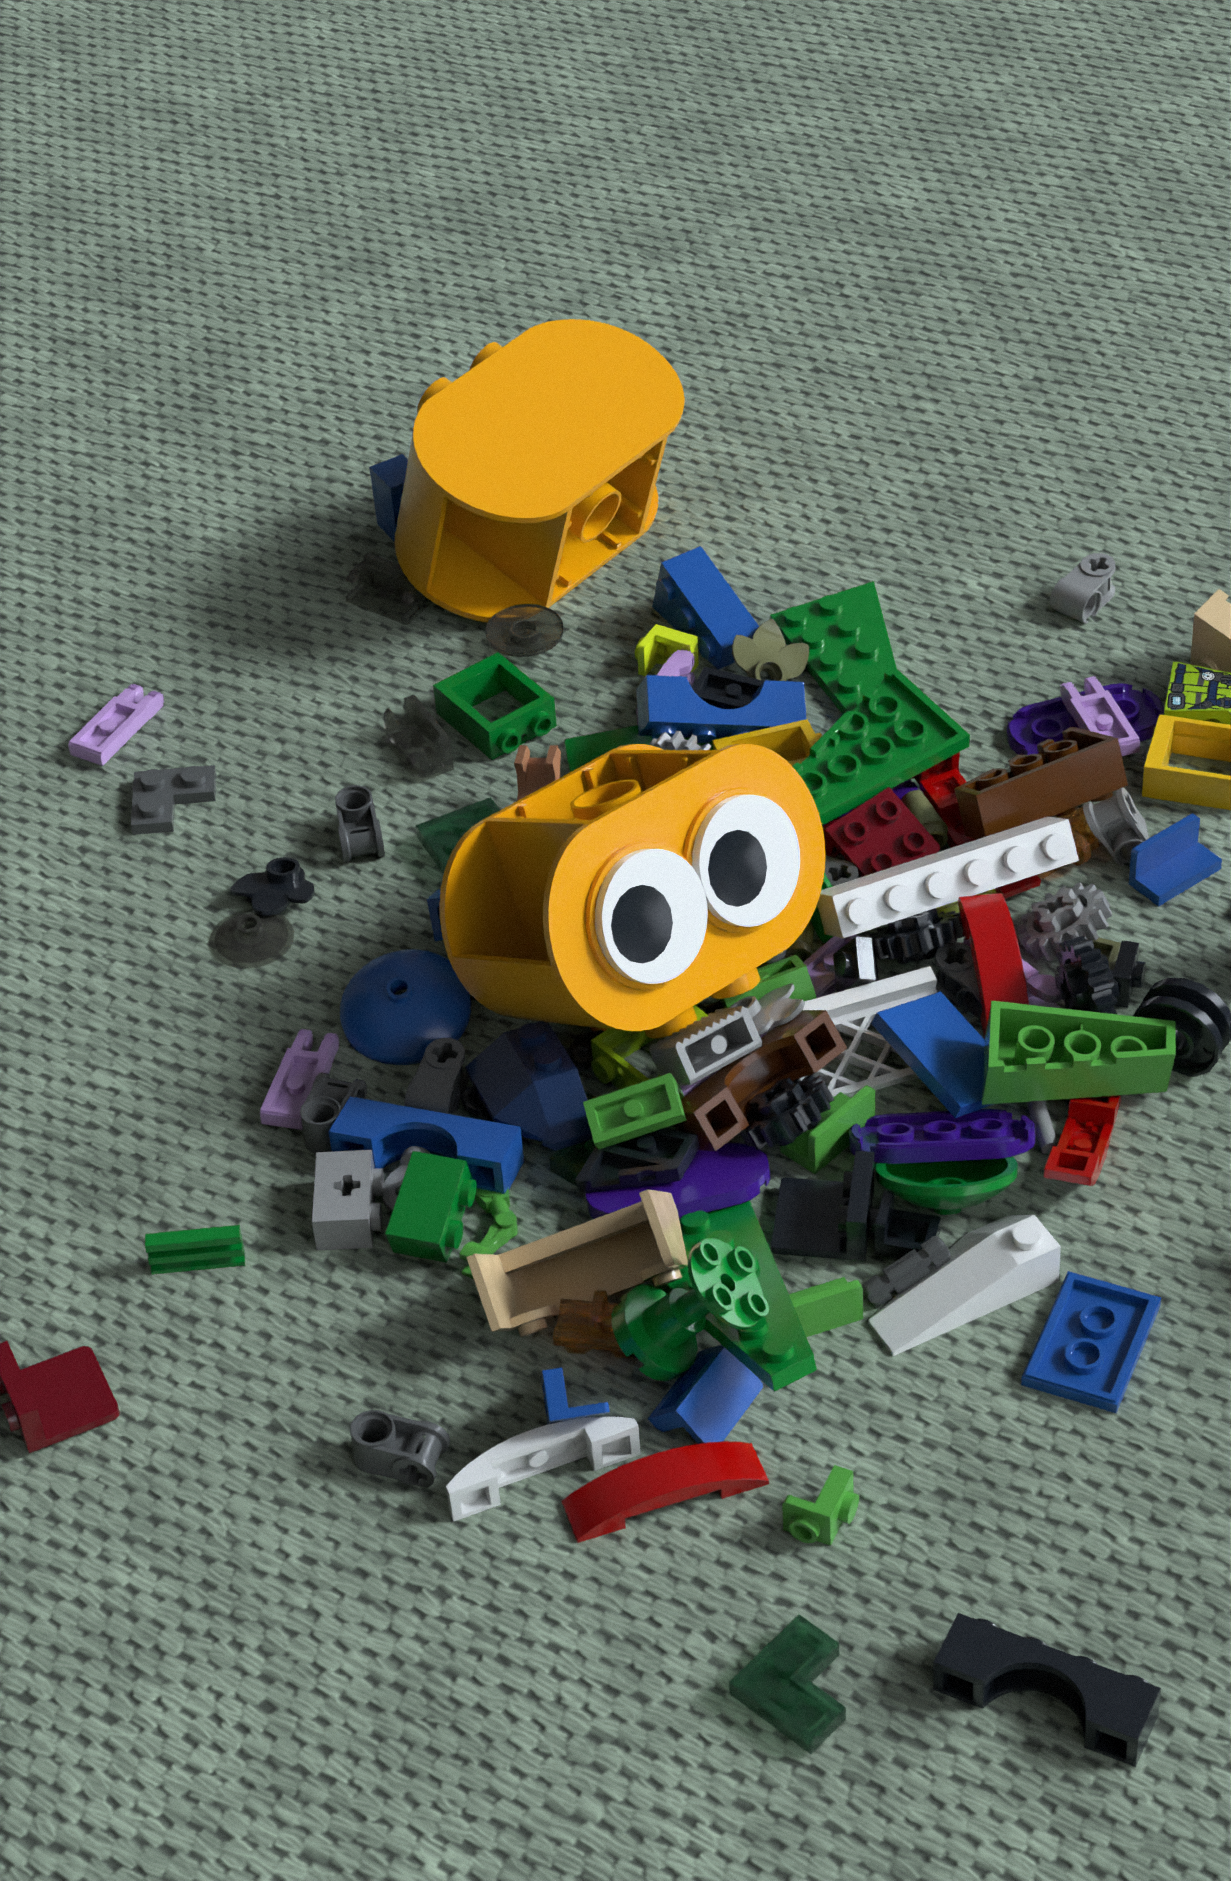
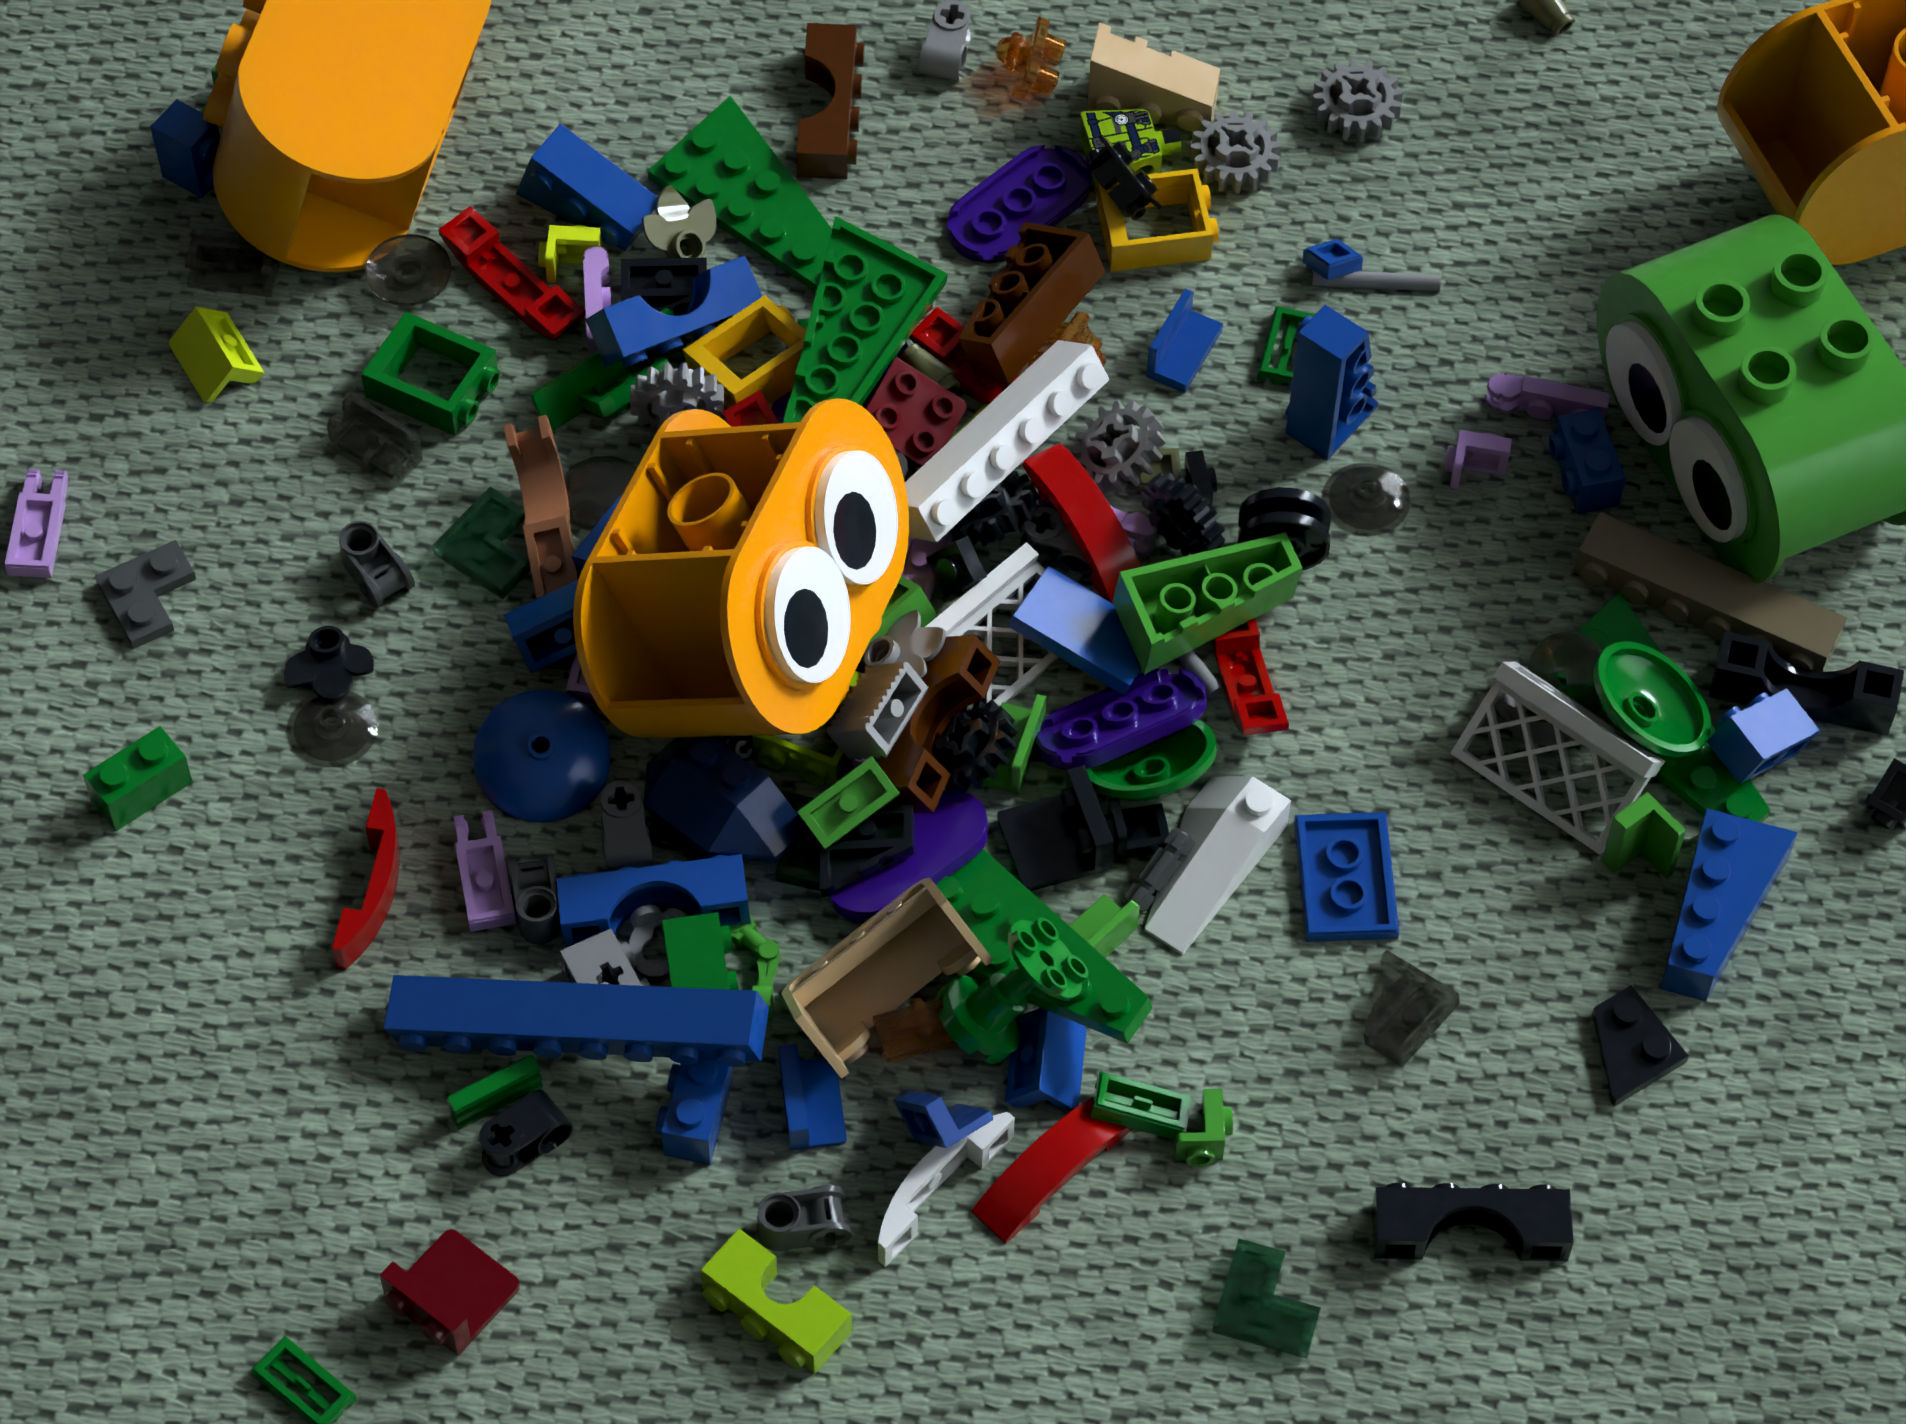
camera: 30 degrees left, 15 degrees up
(64, 919) = (138, 778): none -> green brick
(167, 1087) = (360, 927): none -> red slope
(201, 1290) = (524, 1133): none -> black piece
(294, 1206) = (577, 1019): none -> blue brick
(334, 642) = (213, 352): none -> neon yellow panel
(341, 1540) = (802, 1330): none -> lime arch
(360, 1320) = (695, 1110): none -> blue brick
(465, 1354) = (811, 1101): none -> blue panel
(601, 652) = (507, 278): none -> red slope
(770, 1463) = (1140, 1112): none -> green tile
(938, 630) = (824, 138): none -> reddish brown arch
(1085, 1474) = (1406, 1009): none -> clear smoke wing
(1100, 713) = (1037, 196): lavender hinge -> none
(1117, 825) = (1121, 324): light grey piece -> none
(1150, 616) = (1028, 55): none -> clear orange hips
(1179, 717) = (1133, 190): none -> black hinge

